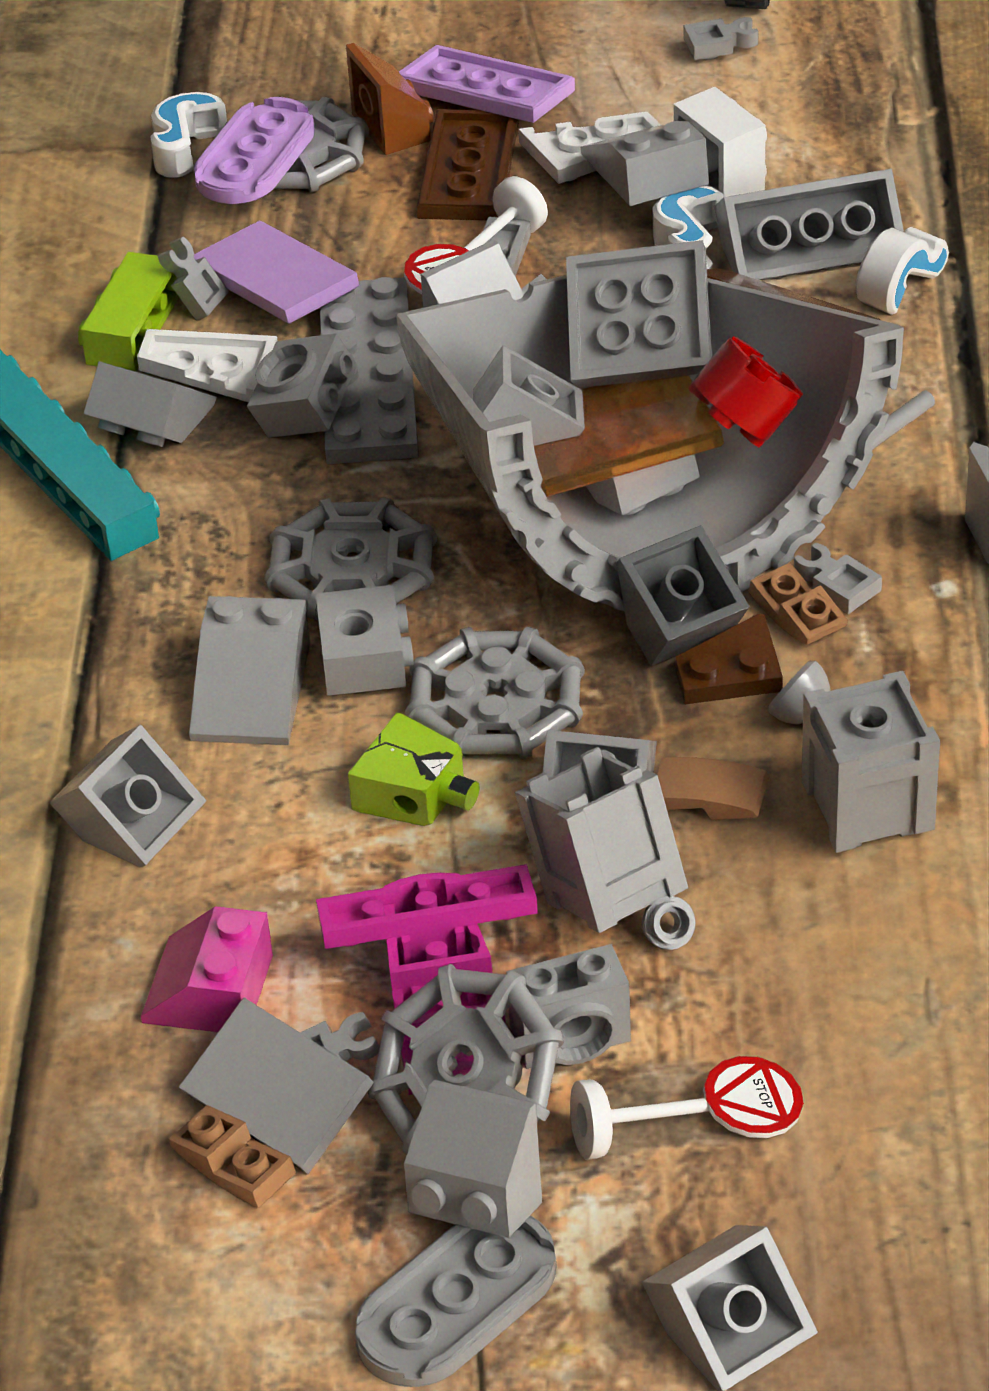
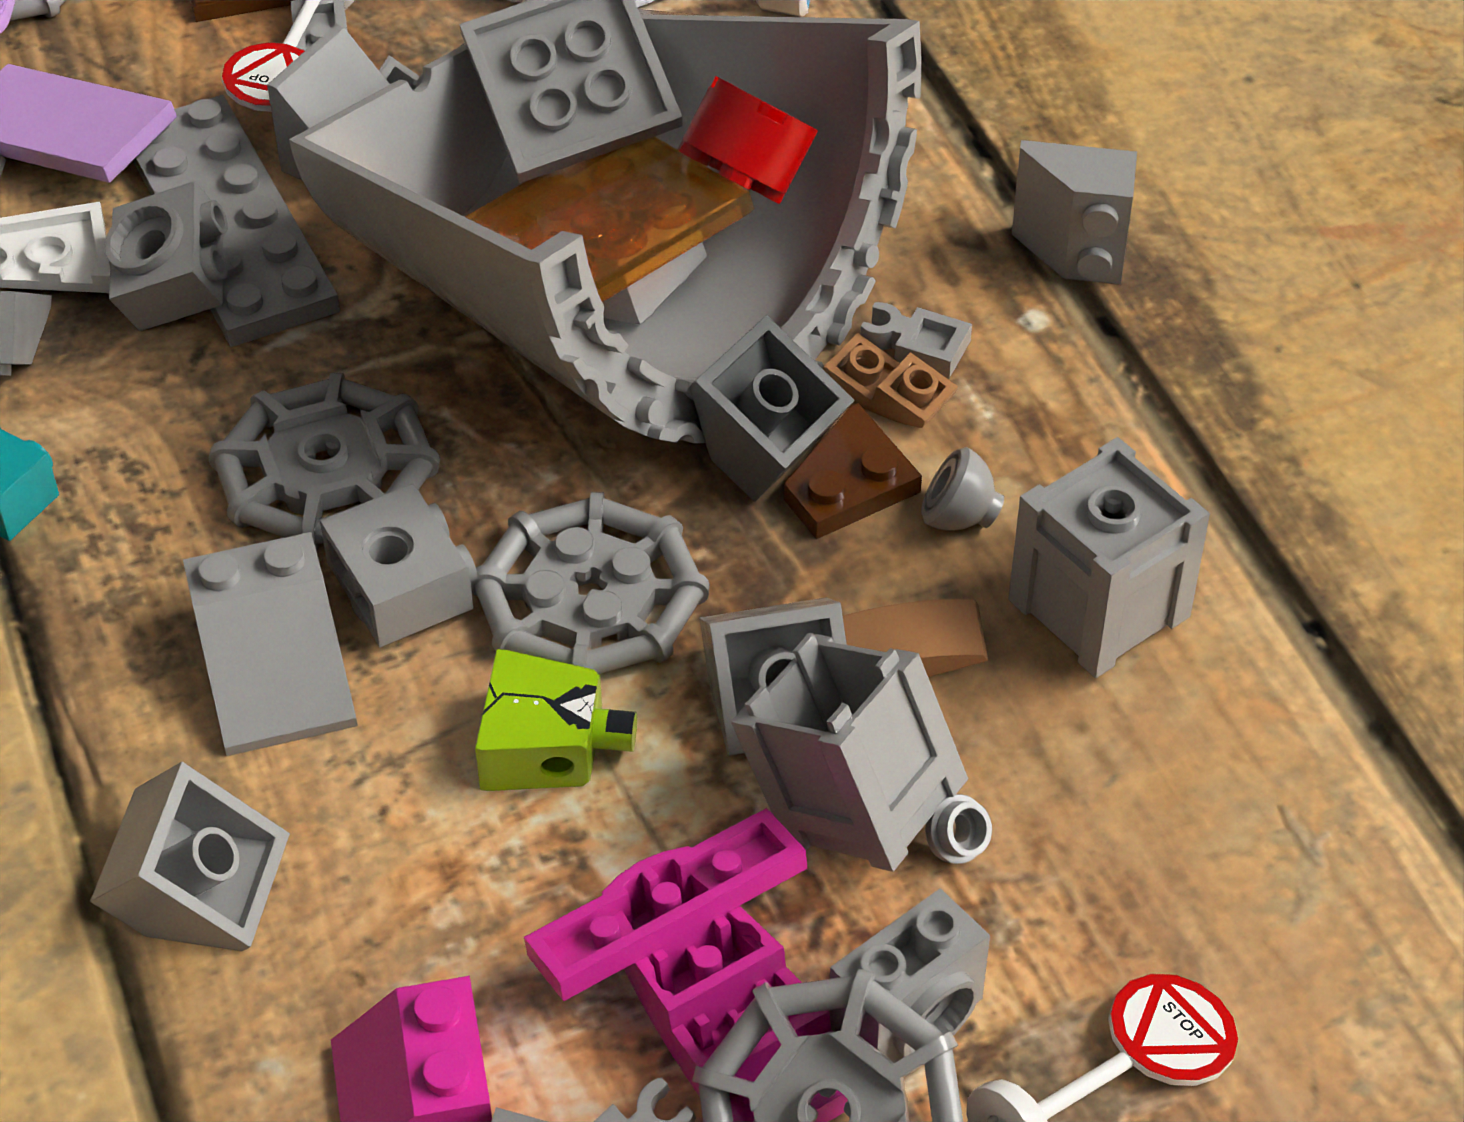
camera: 25 degrees left, 5 degrees up
(520, 386) = (489, 198): light grey slope -> none

